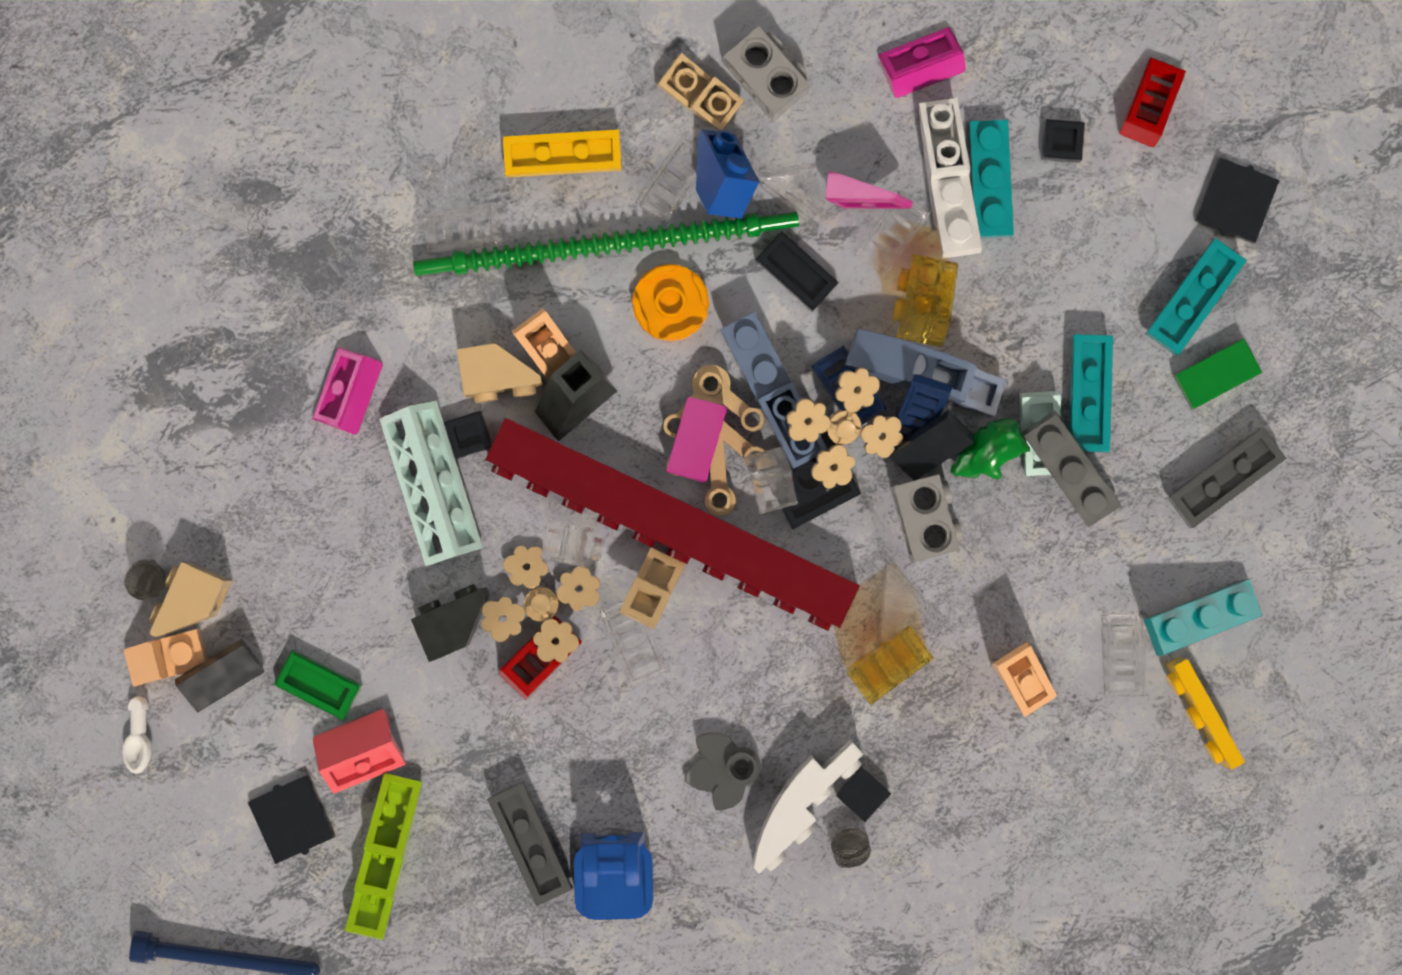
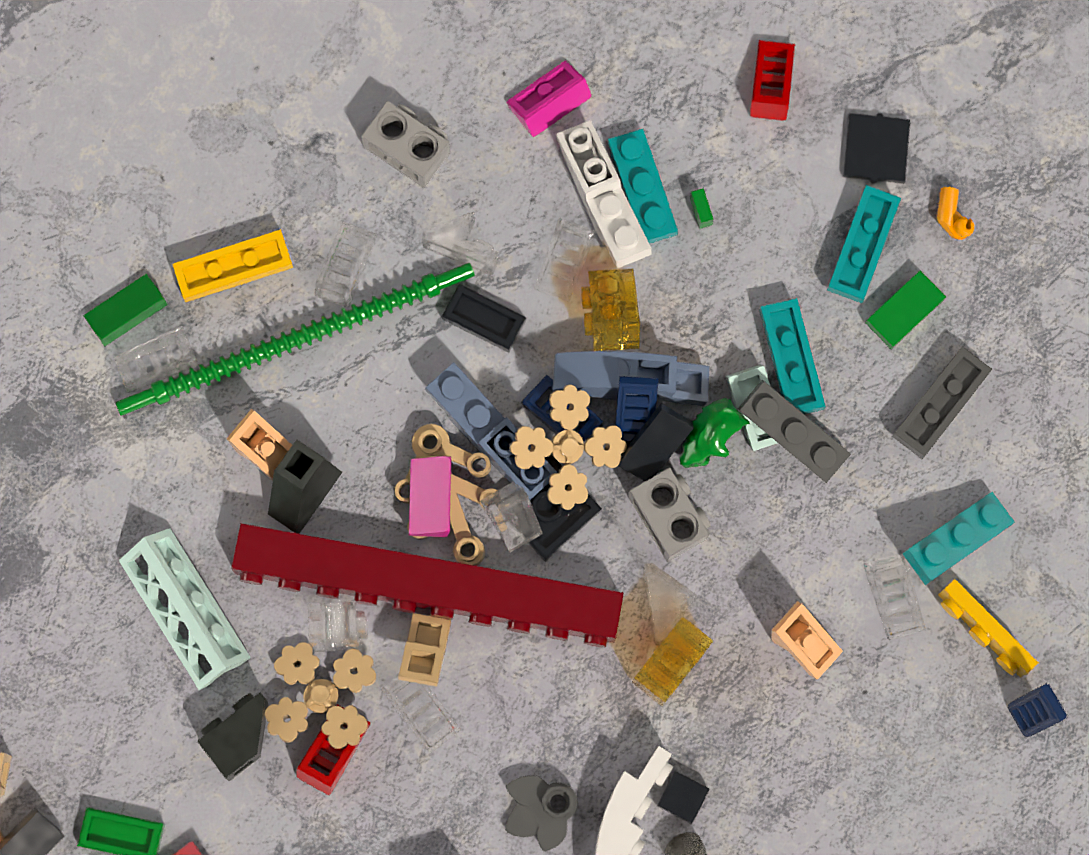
camera: 20 degrees left, 10 degrees down
(347, 390) = (81, 542): dark pink slope -> none
(445, 169) = (125, 310): none -> green slope
(468, 435) = (209, 553): black tile -> none
(493, 370) = (219, 484): tan slope -> none
(670, 302) = (371, 378): light orange tile -> none
(699, 92) = (348, 178): tan slope -> none
(723, 174) = (391, 244): blue slope -> none
(855, 194) = (521, 230): dark pink slope -> none
(1043, 217) = (701, 208): none -> green piece
(1063, 140) = (700, 135): black tile -> none
(1229, 806) = (1037, 710): none -> dark blue slope
(1289, 293) = (948, 216): none -> light orange arm

